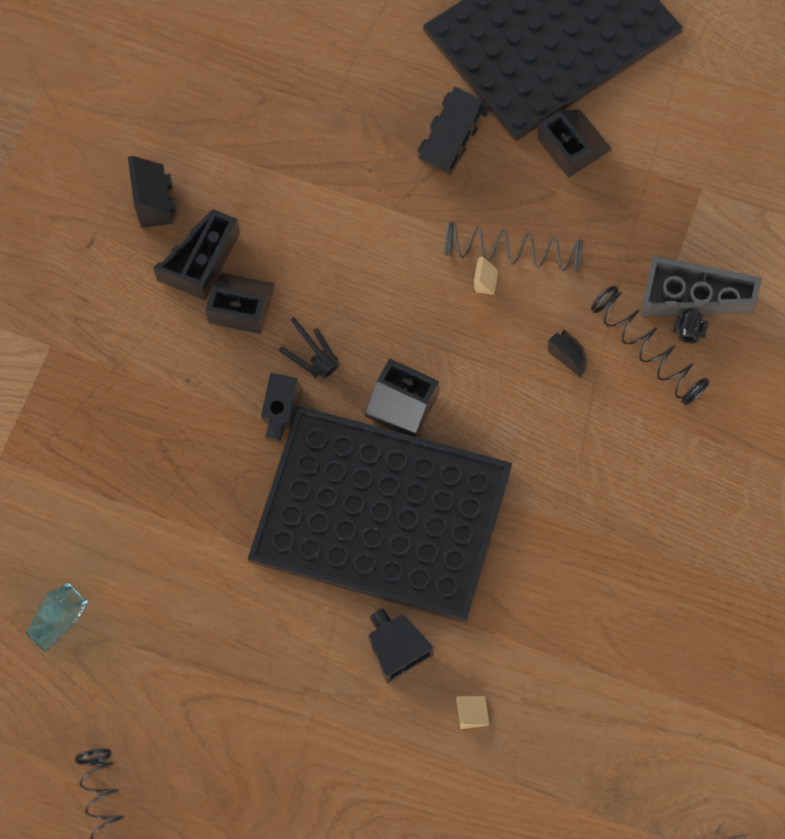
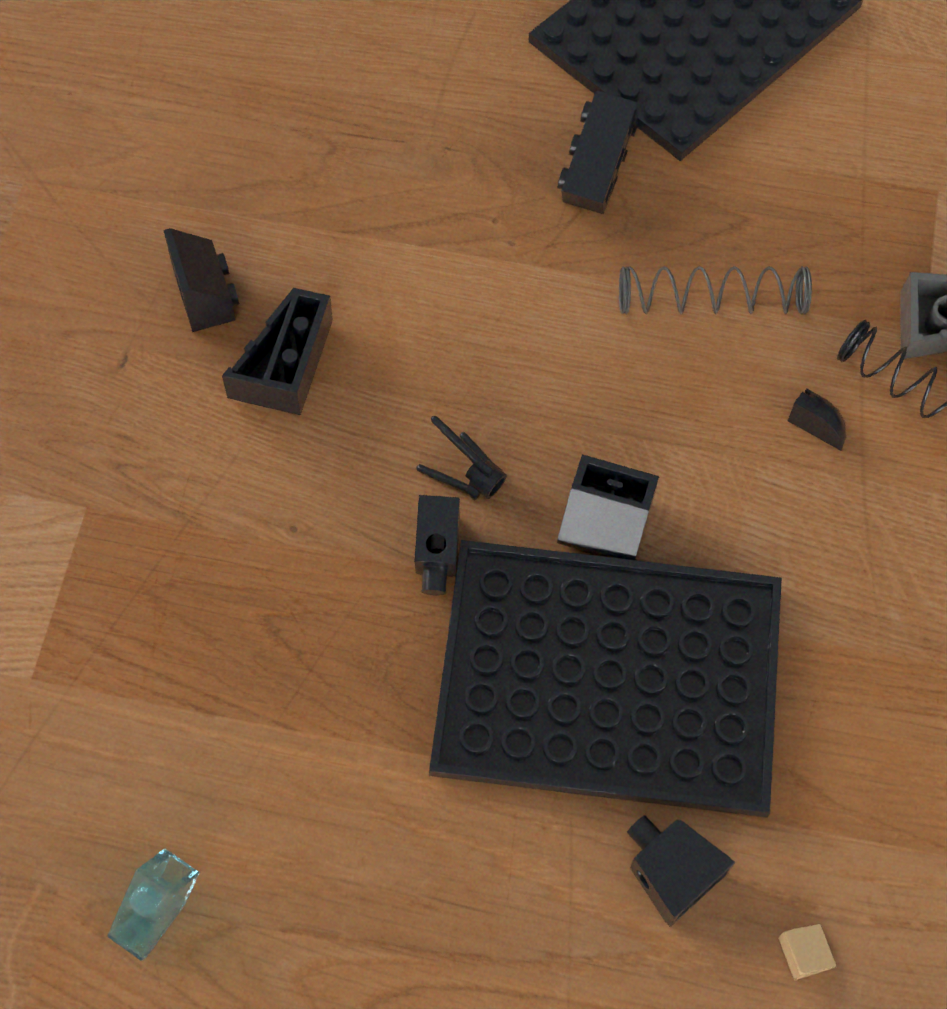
camera: 15 degrees left, 5 degrees down
(239, 303) = (350, 412): black slope -> none
(485, 277) = (681, 335): tan slope -> none
(571, 140) = (756, 149): black slope -> none

